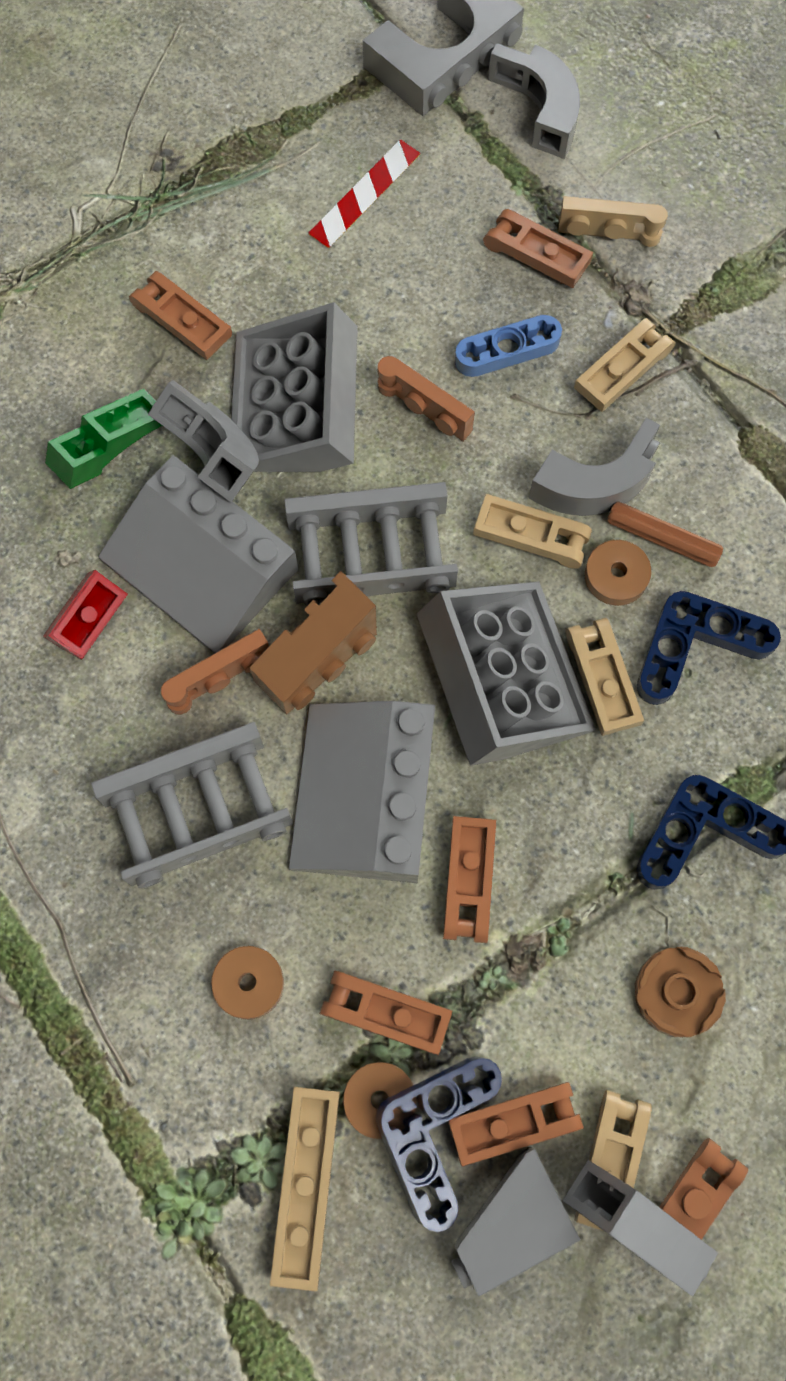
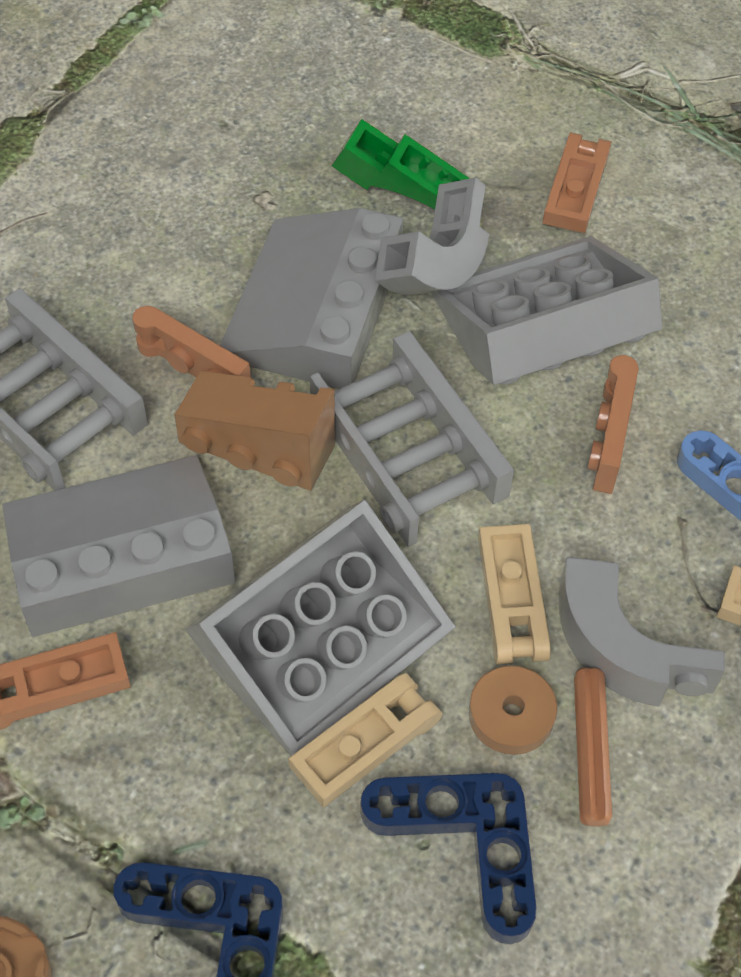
camera: 65 degrees right, 15 degrees down
(85, 614) = (208, 232): red slope -> none

